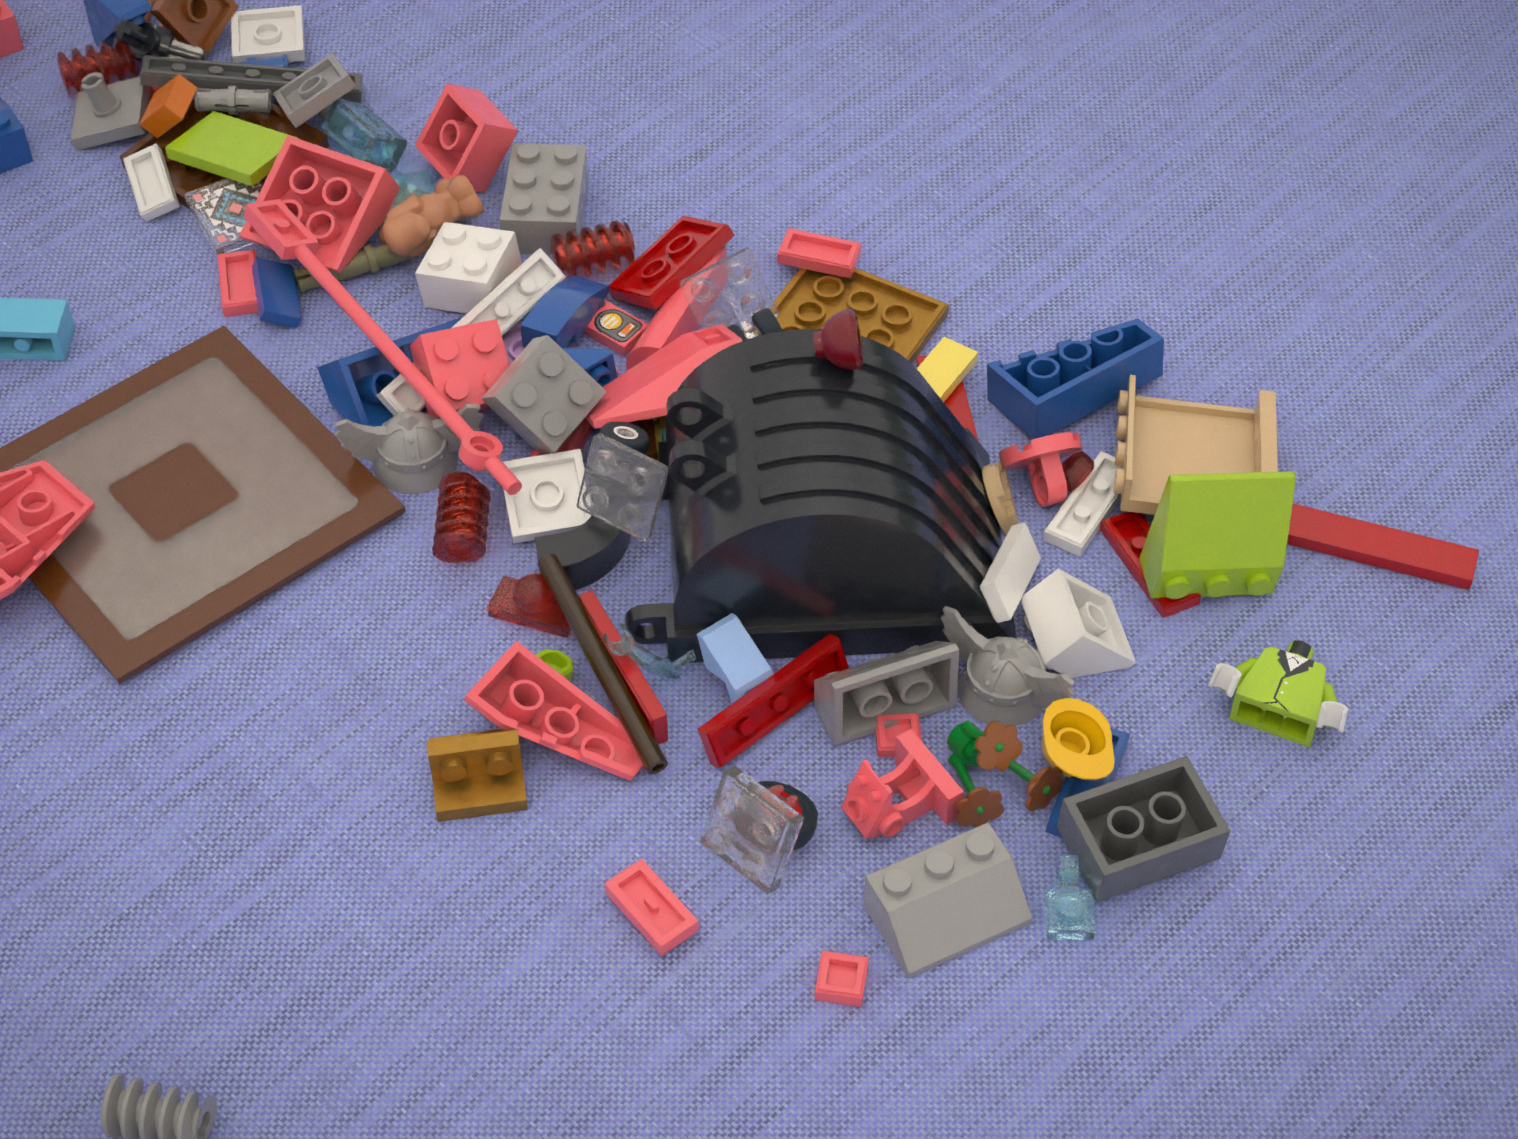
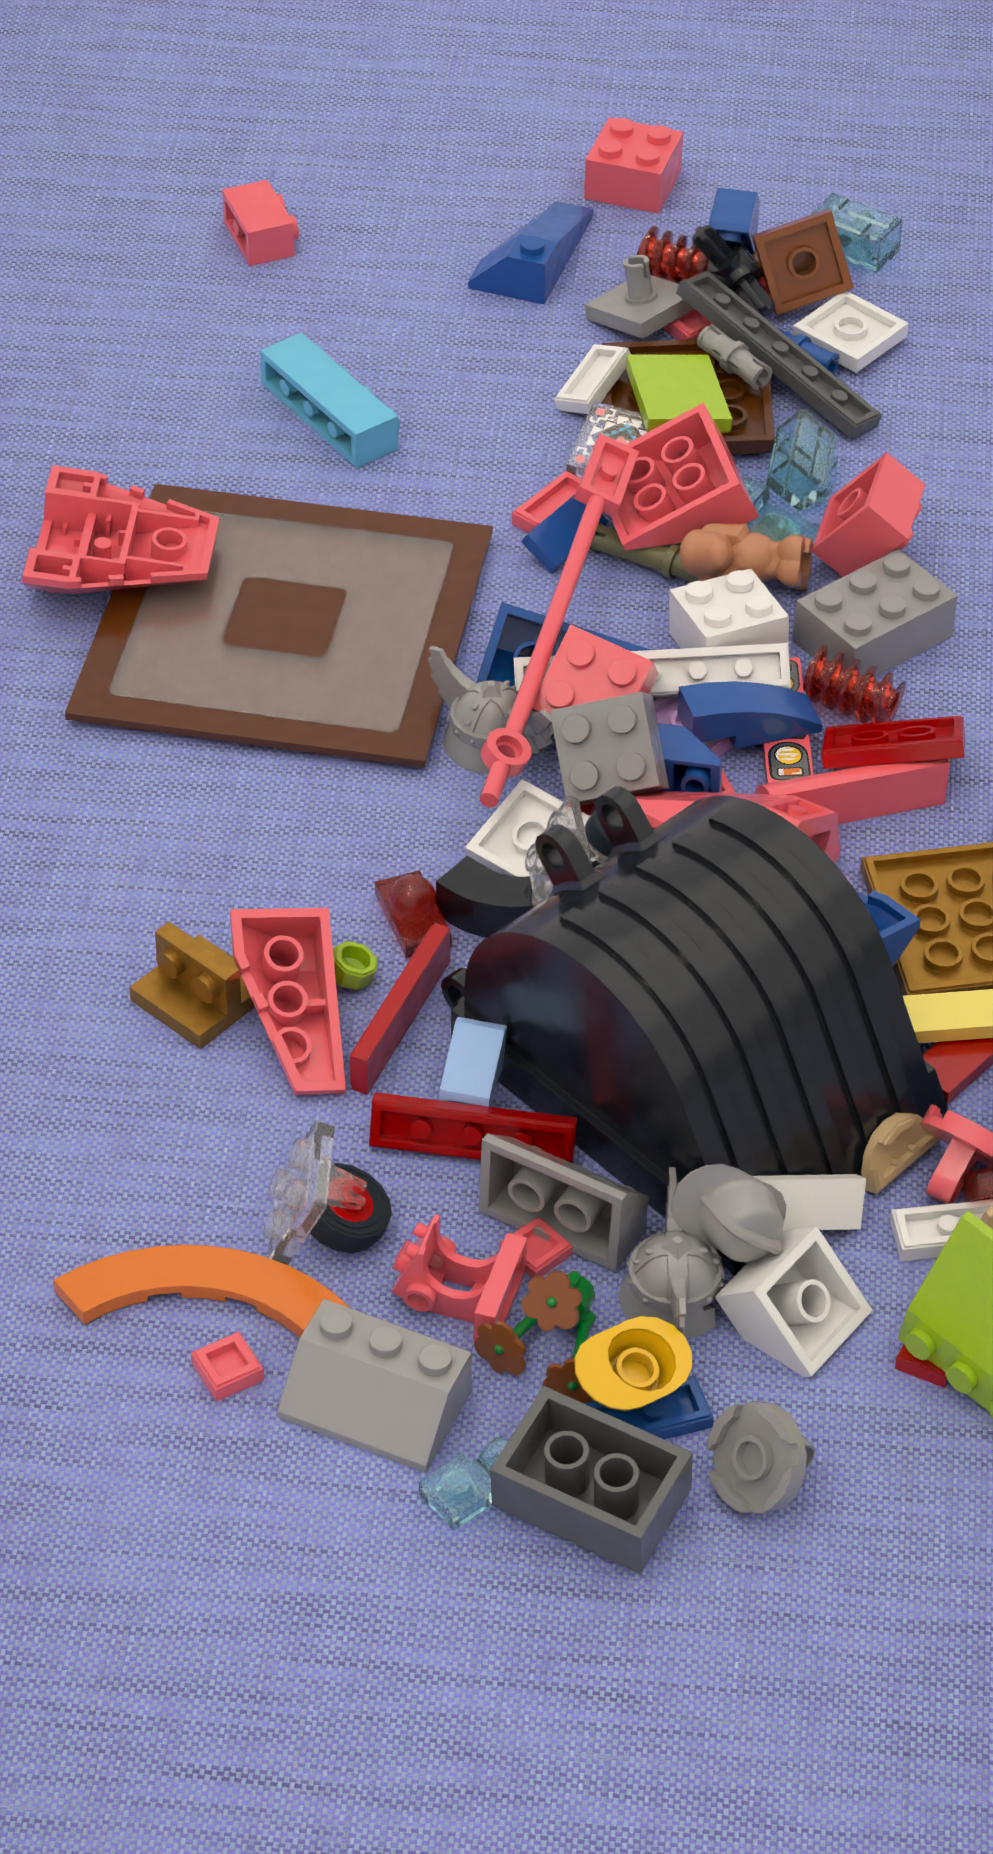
camera: 50 degrees right, 5 degrees down
(168, 106) = (674, 324): orange piece -> none
(314, 90) = (799, 391): light grey tile -> none
(461, 518) = (441, 802): clear red piece -> none
(602, 664) = (386, 974): dark brown piece -> none
(647, 660) = (433, 1037): clear light blue piece -> none
(651, 907) = (170, 1187): coral plate -> none
(732, 295) = (883, 816): clear plate -> none
(750, 935) = (195, 1273): none -> orange tile
(840, 341) = (791, 850): dark red brick -> none
(1015, 603) = (730, 1212): none -> light grey piece
(1201, 725) = (758, 1457): none -> light grey tile
(1282, 693) = (882, 1500): lime torso -> none

